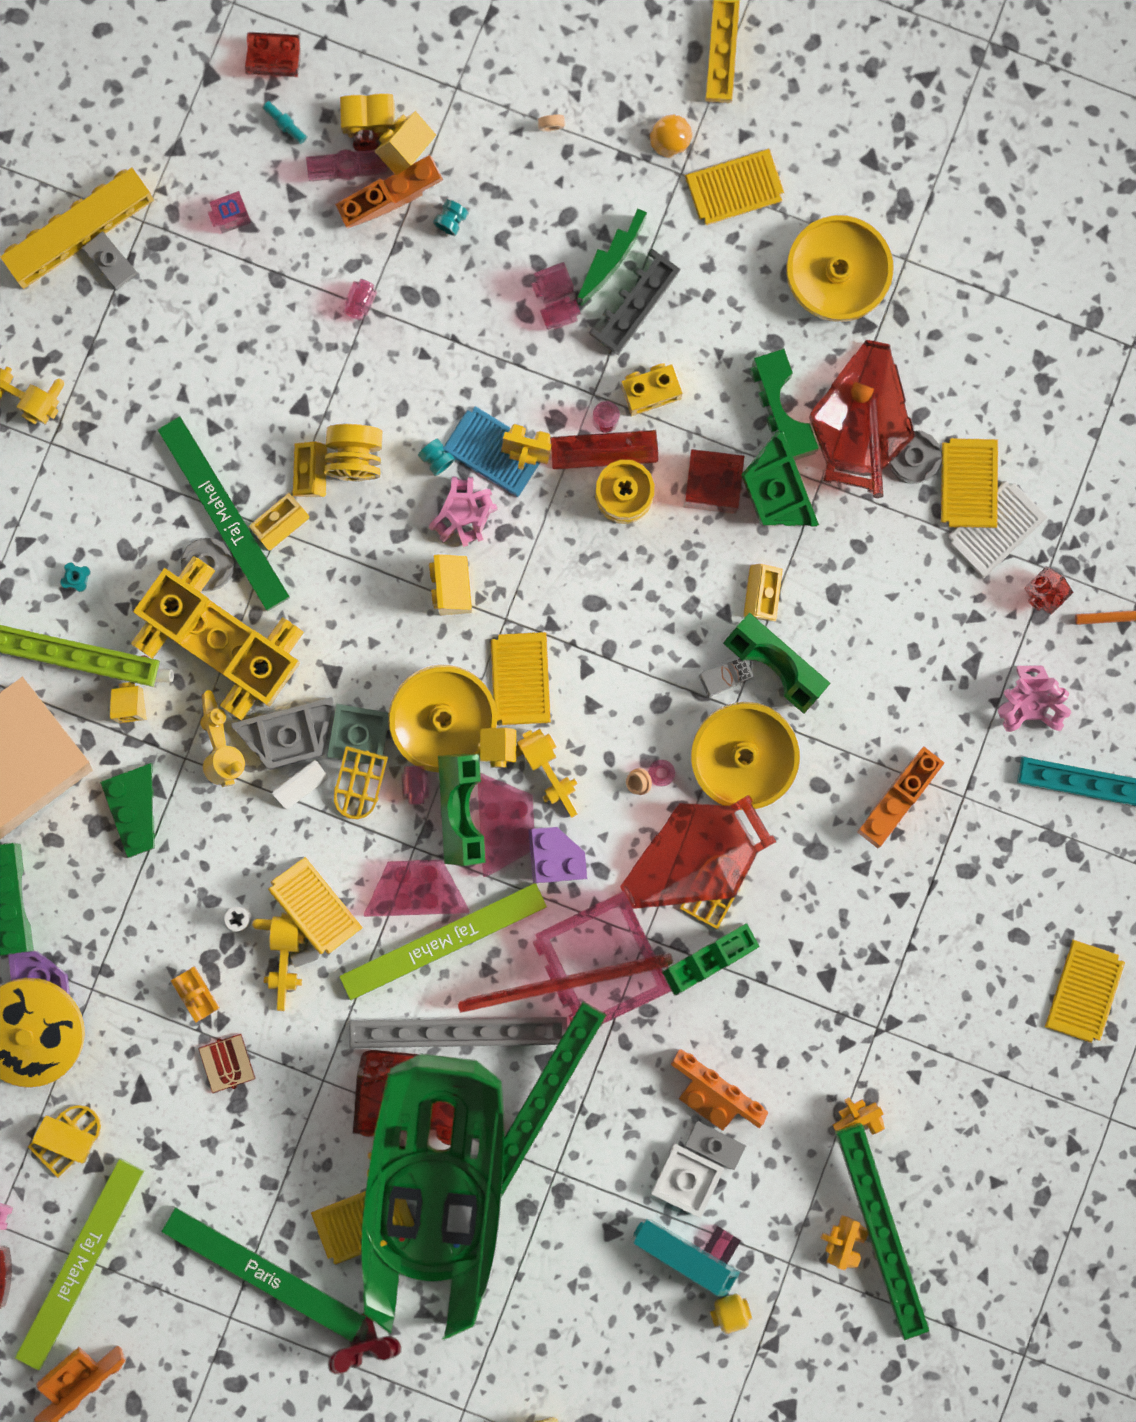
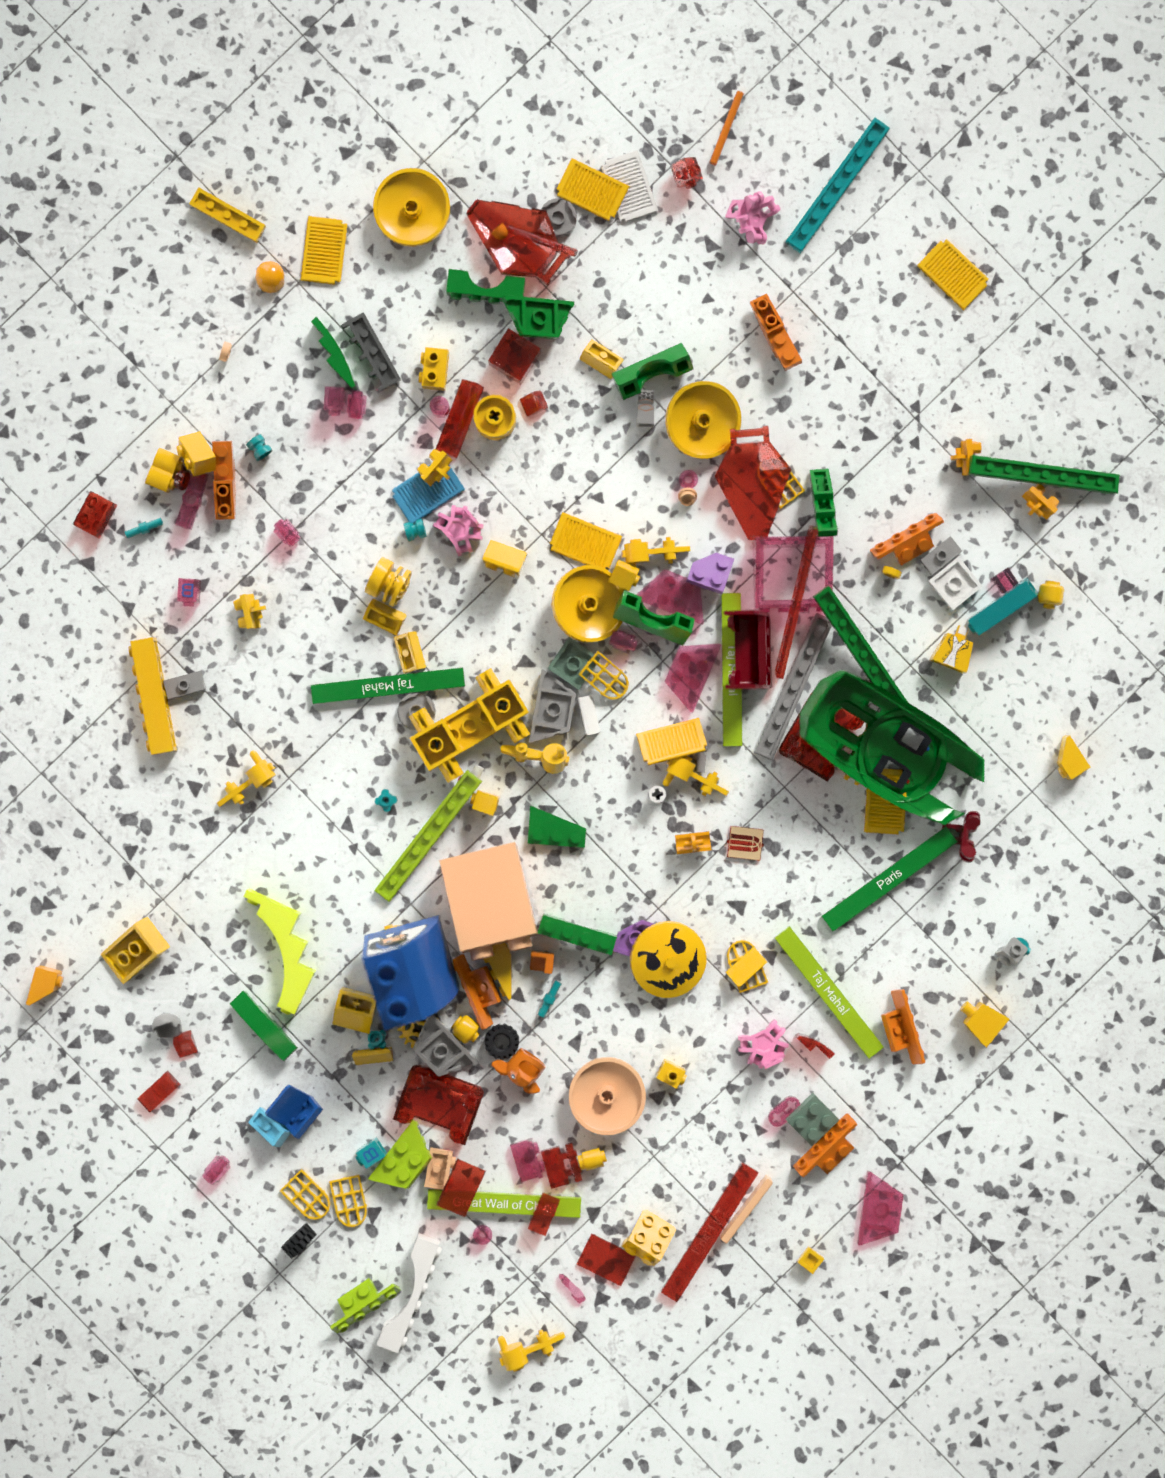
camera: 60 degrees left, 5 degrees up
(239, 299) = (251, 610): none -> yellow hips
(476, 956) = (751, 649): none -> dark red windscreen
(599, 1220) = (954, 651): none -> yellow torso
(663, 1090) = (891, 572): none -> yellow tile
(667, 533) = (533, 403): none -> clear red slope

